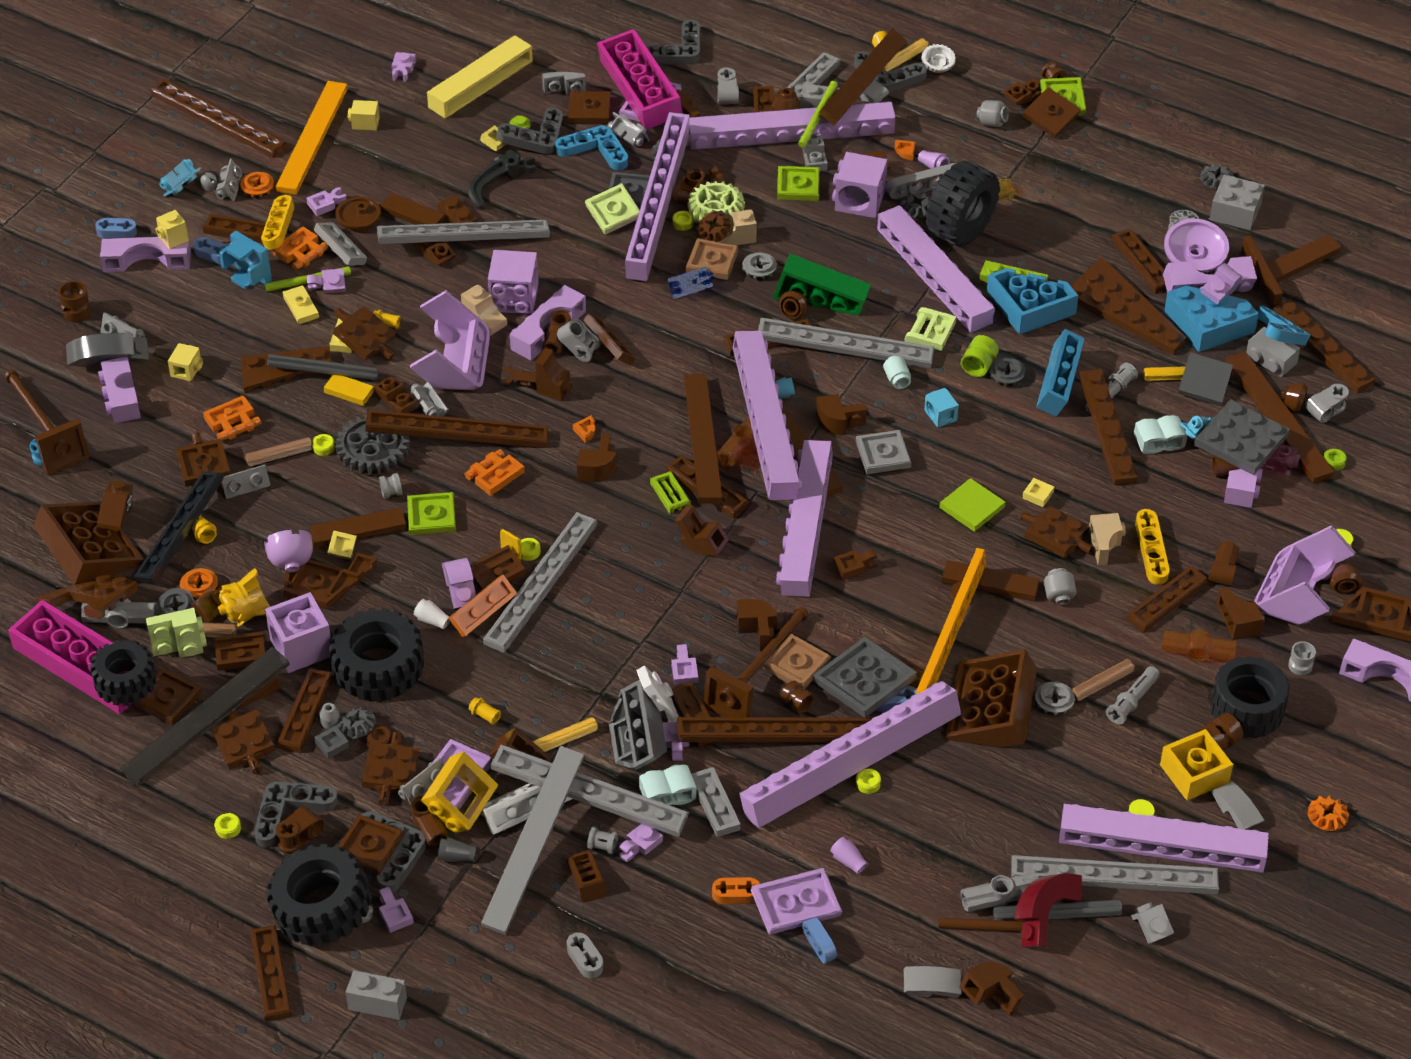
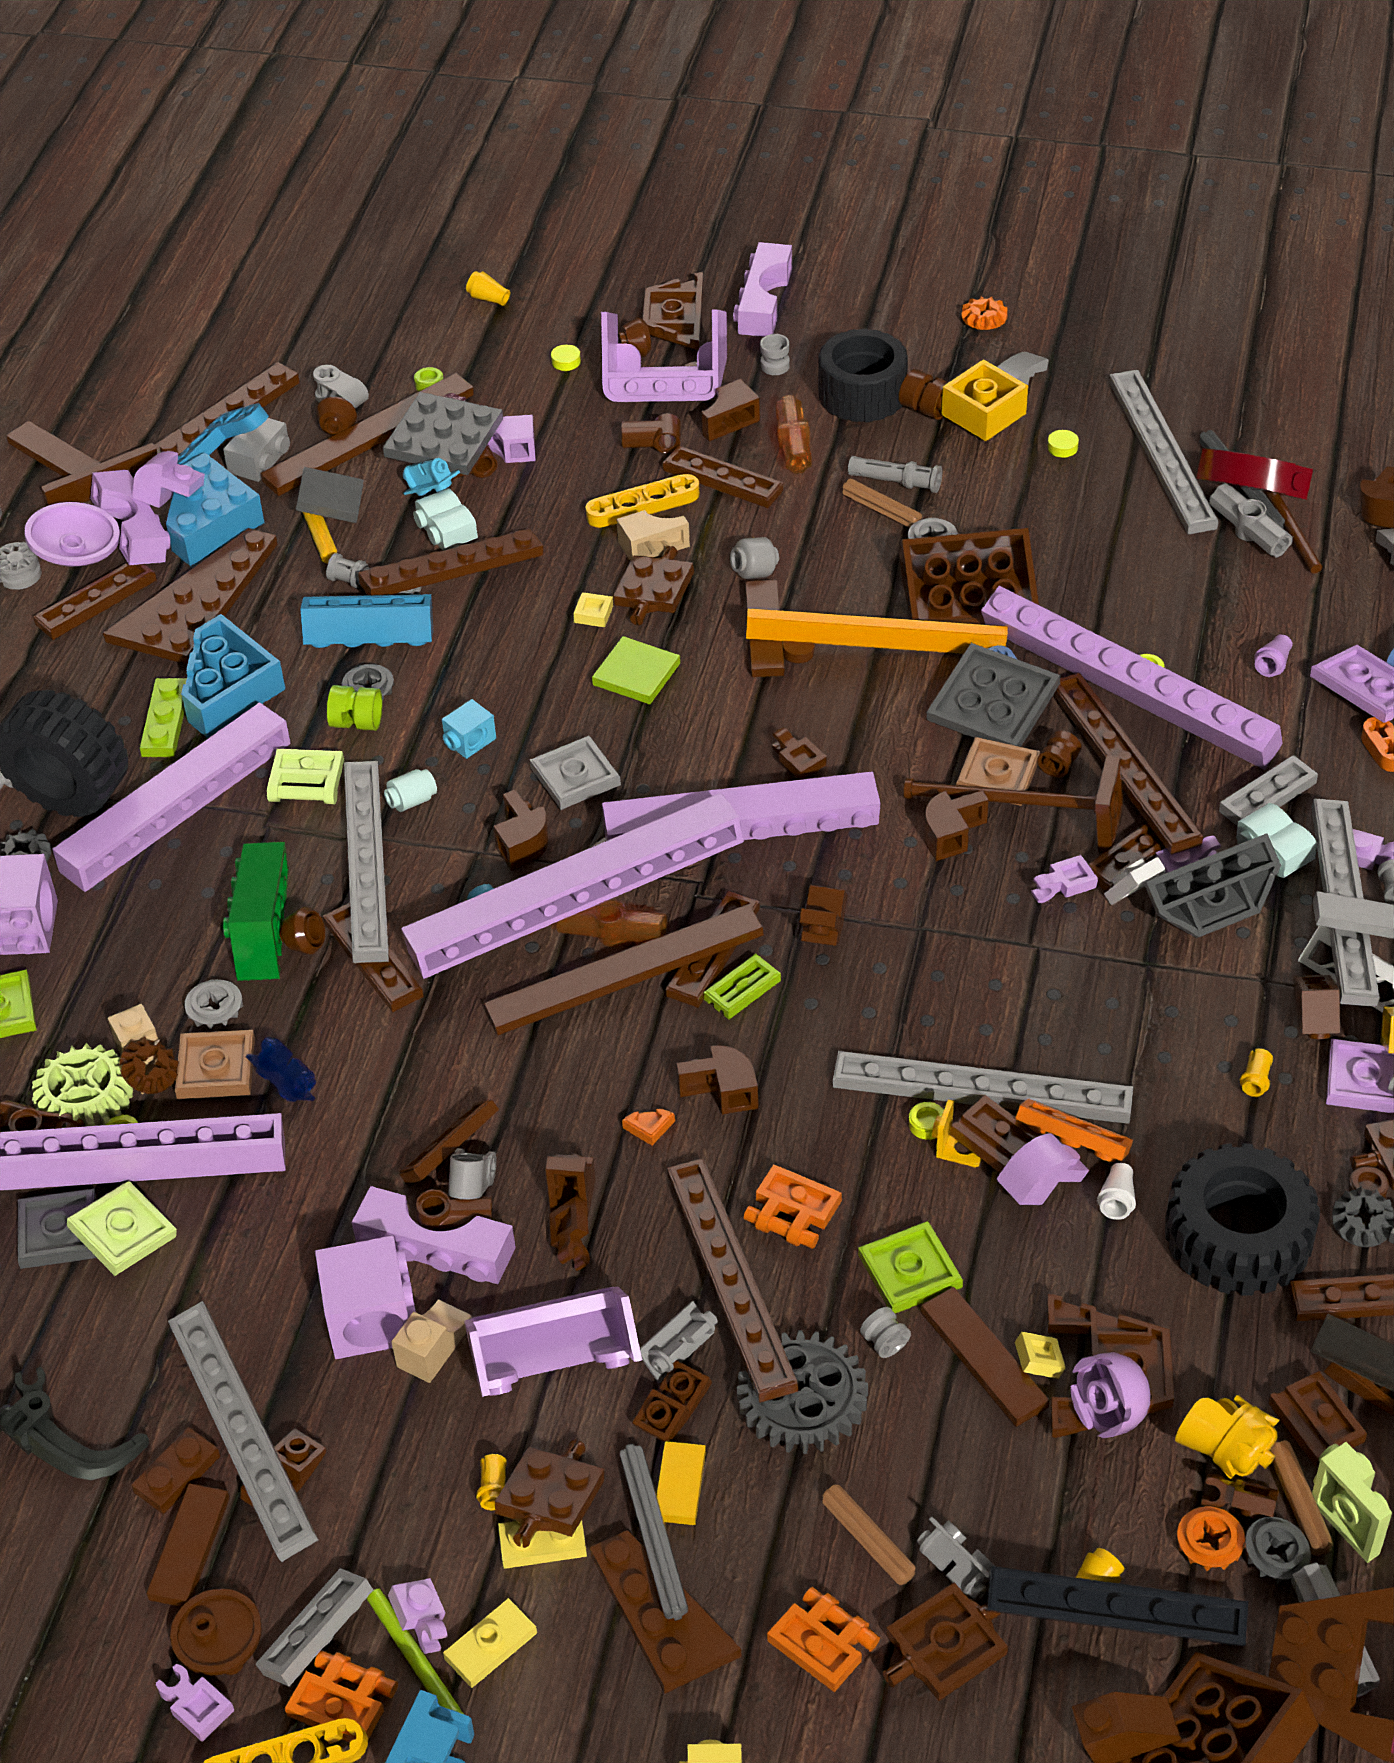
camera: 105 degrees left, 0 degrees up
(299, 631) = (1265, 1321): lavender brick -> none
(323, 445) = (821, 1473): neon yellow tile -> none
(329, 715) = (1370, 1255): light grey hose -> none
(567, 734) = (1250, 976): yellow axle -> none
(1153, 922) = (1208, 407): light grey bracket -> none
(1164, 837) = (1096, 418): lavender brick -> none

